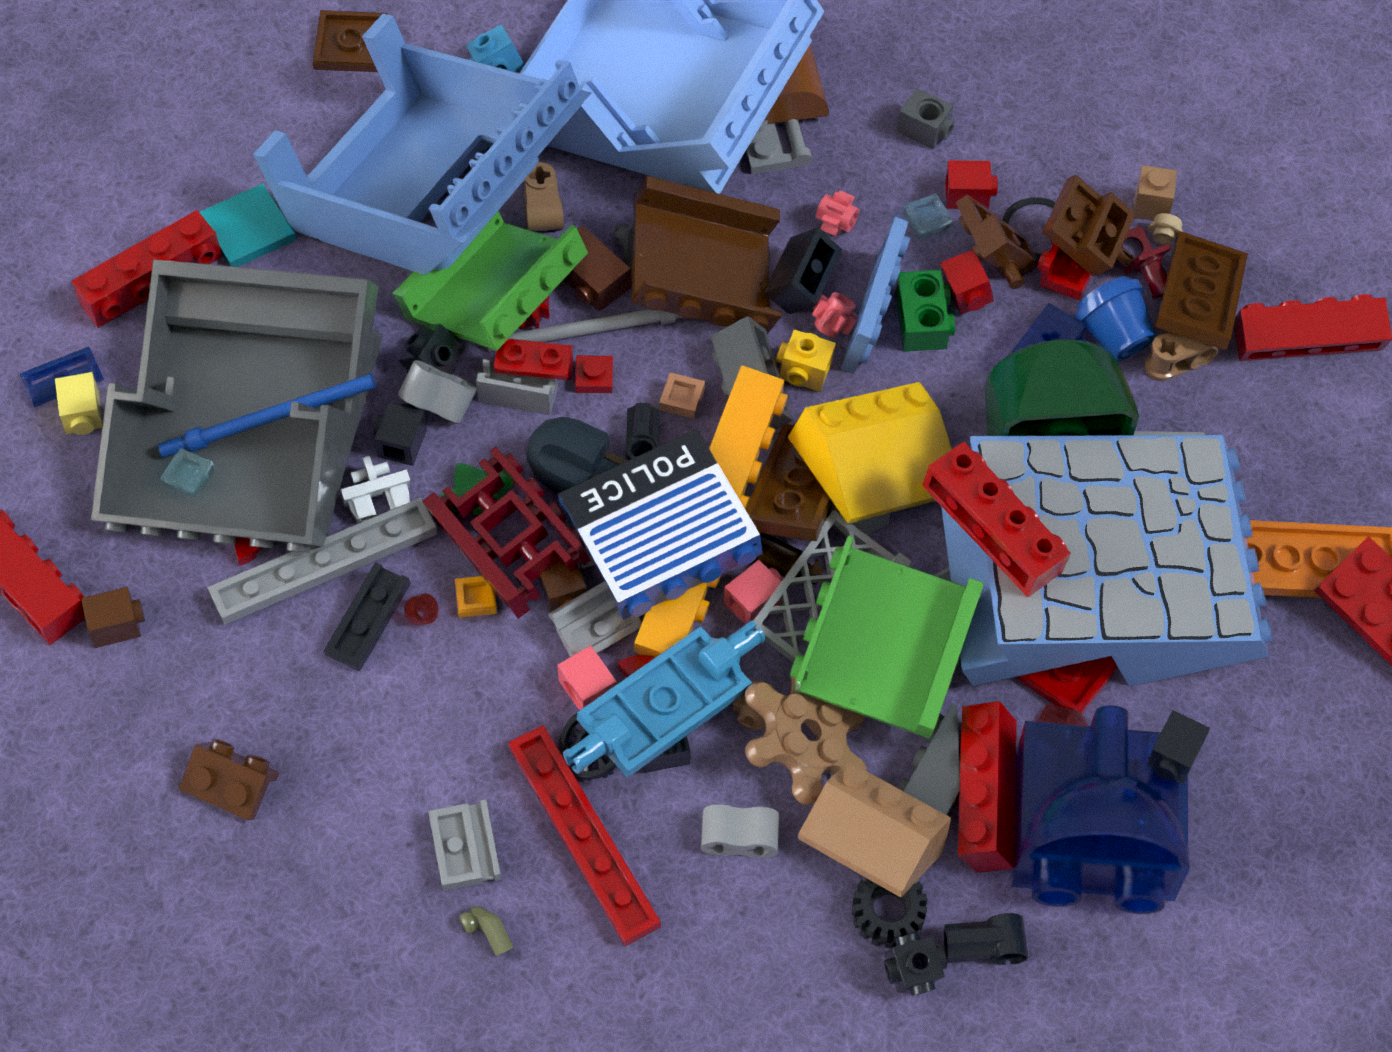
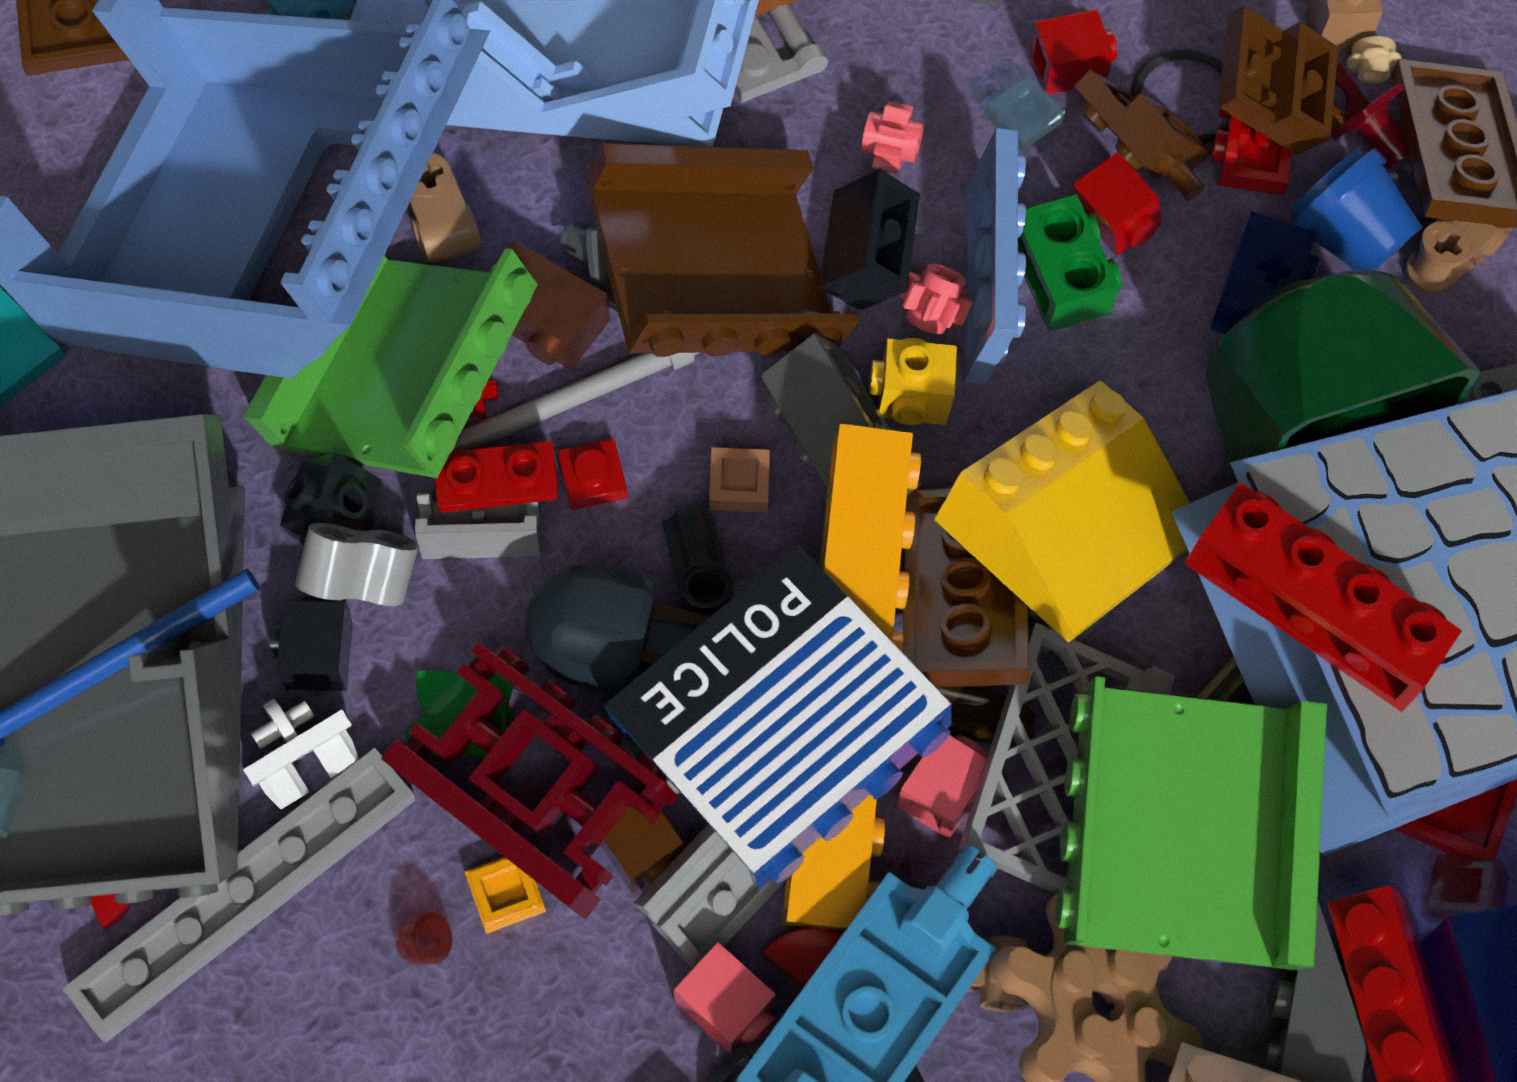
camera: 15 degrees left, 5 degrees up
(367, 617) = (339, 974): black hinge -> none

